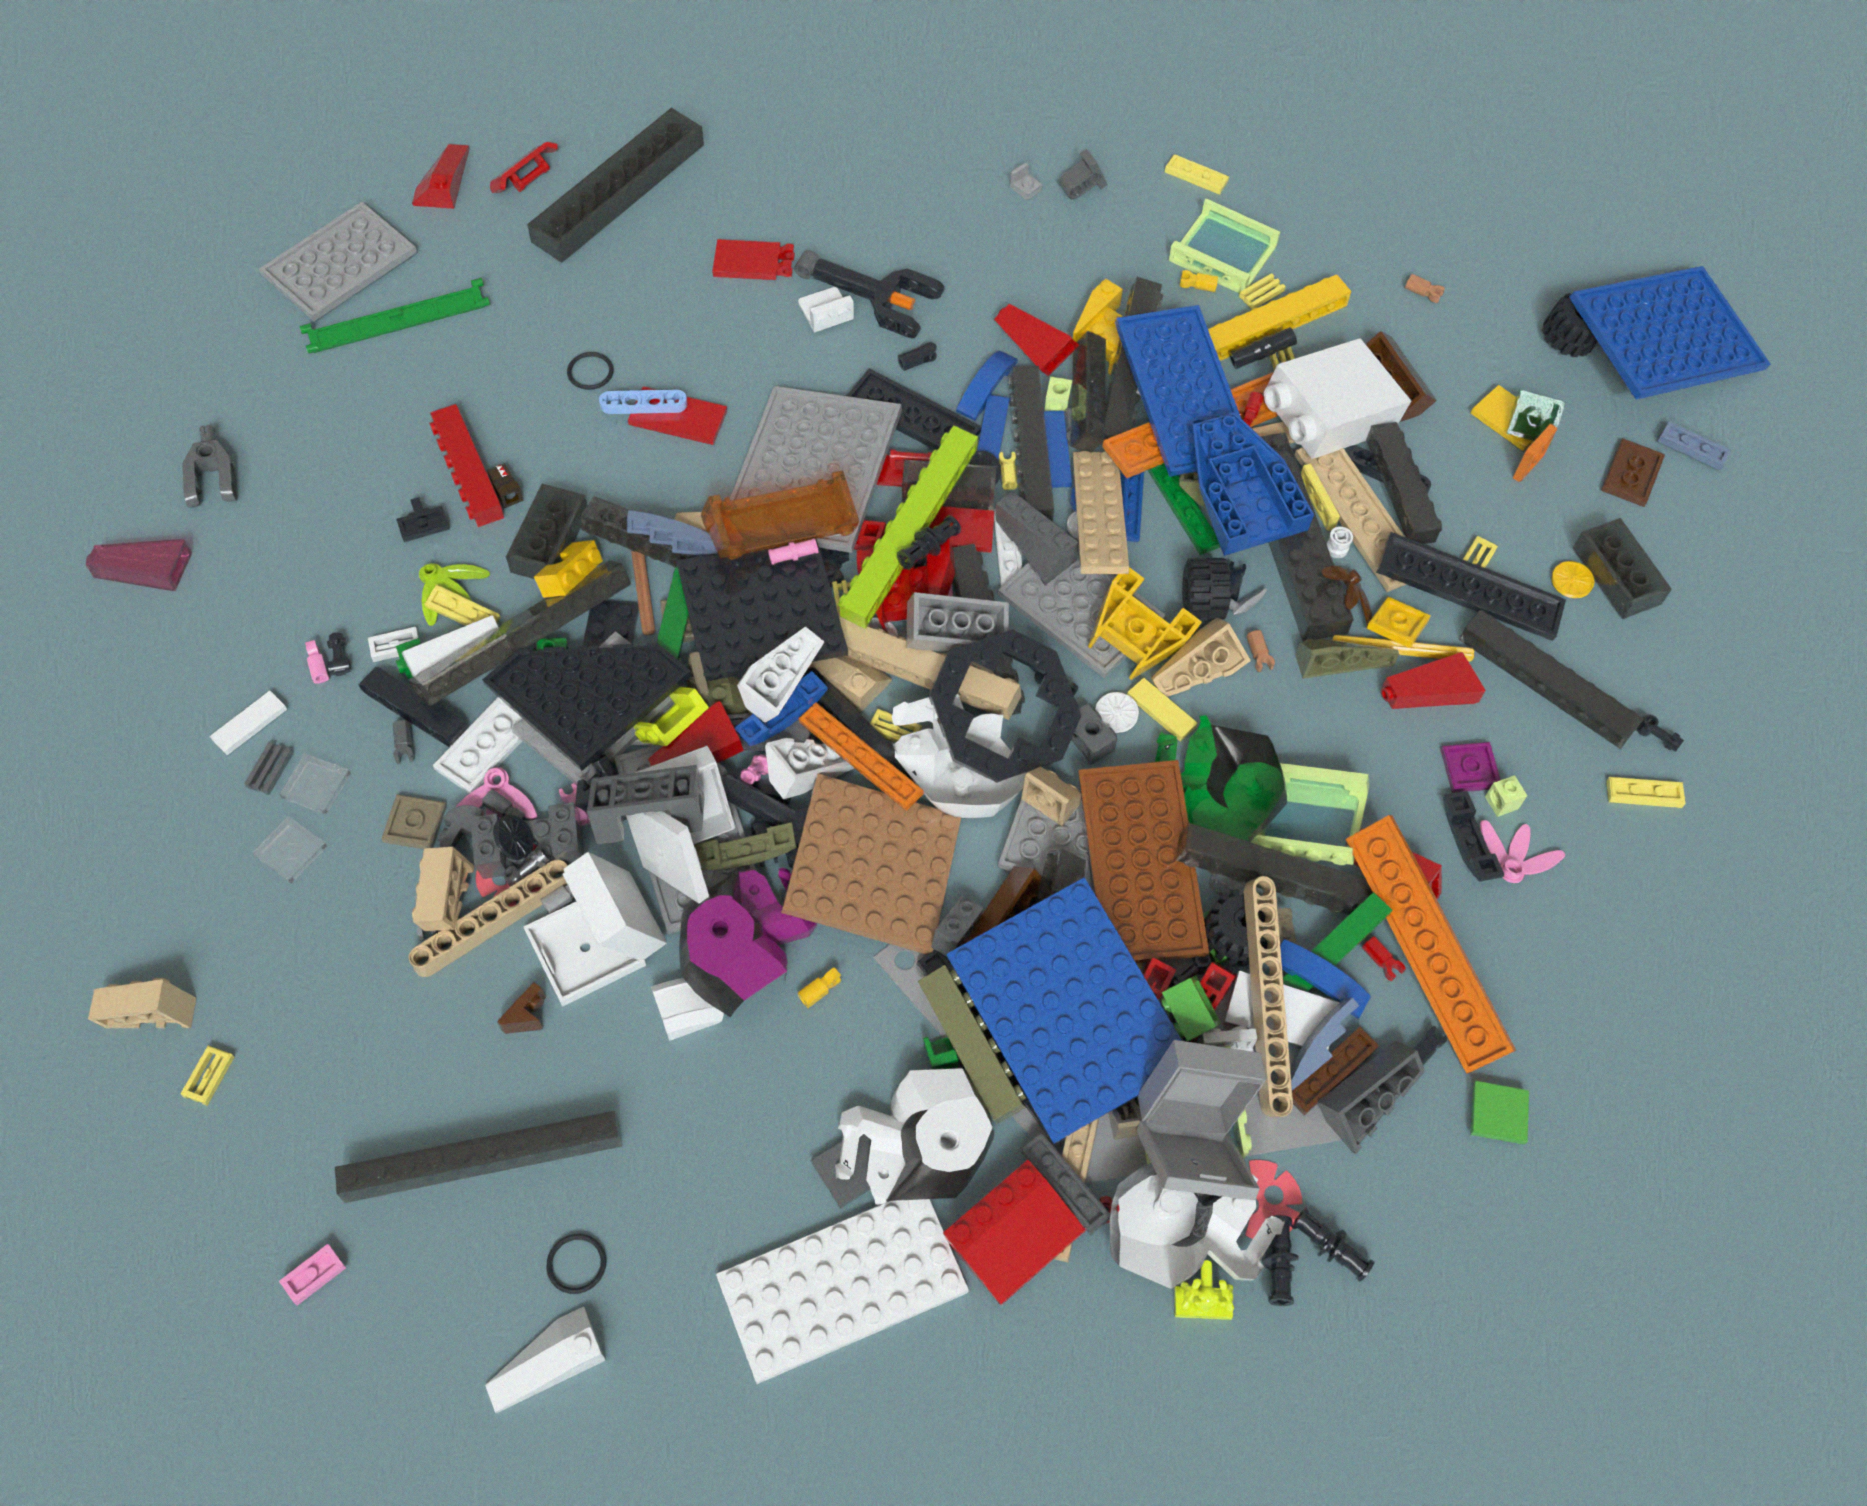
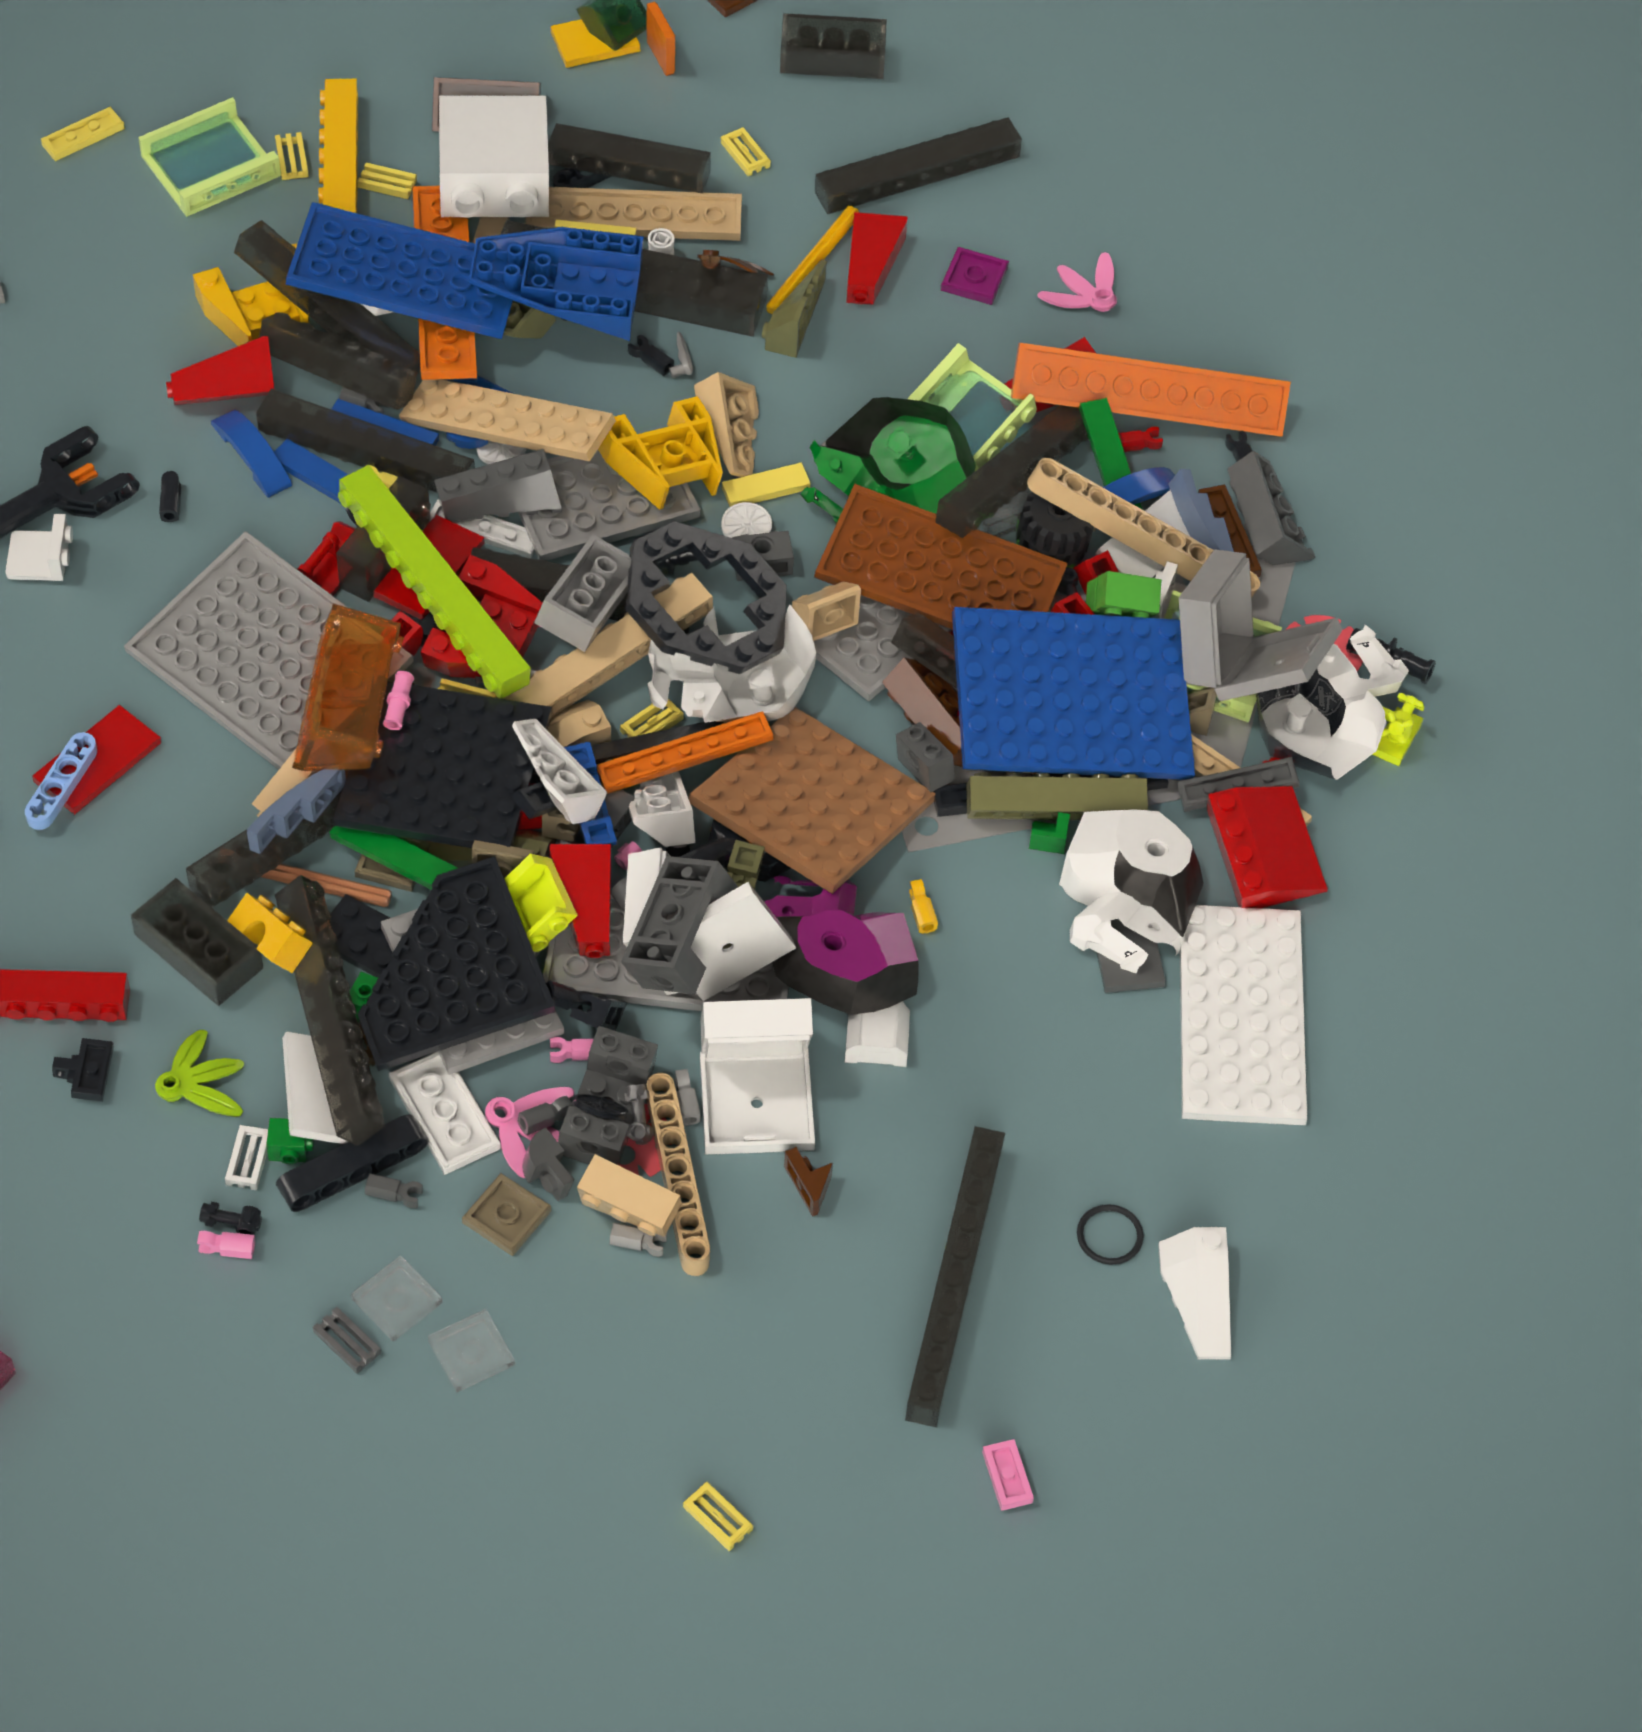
camera: 65 degrees left, 5 degrees down
(142, 1003) = (599, 1551): tan wedge -> none
(248, 723) = (268, 1343): white tile -> none
(457, 607) = (244, 1070): light yellow tile -> none
(504, 485) = (88, 960): dark brown leg -> none
(919, 415) = (274, 522): black plate -> none
(928, 542) = (474, 569): black piece -> none
(1058, 394) = (316, 389): yellowish green brick -> none
(1082, 177) = (20, 231): dark grey tile -> none
(1185, 510) = (536, 354): green tile -> none
(1198, 281) = (240, 201): yellow bar -> none
(1206, 588) = (658, 373): black wheel -> none
(1252, 407) = (454, 228): red bar -> none
(1259, 650) = (748, 373): nougat bar -> none
(1263, 347) = (377, 183): black axle -> none
(1333, 1244) = (1395, 609): black piece -> none
(1398, 622) = (784, 247): yellow tile -> none
(1424, 288) = (384, 21): nougat bar -> none
(1469, 838) = (1051, 315): black slope -> none
(1471, 586) = (780, 169): black plate -> none
(1500, 1112) = (1332, 430): bright green tile -> none
(1506, 796) = (1025, 262): yellowish green brick -> none
(1572, 579) = (816, 91): yellow wheel -> none
(1645, 792) = (1076, 162): light yellow tile -> none
(1649, 726) = (1037, 113): black bar -> none

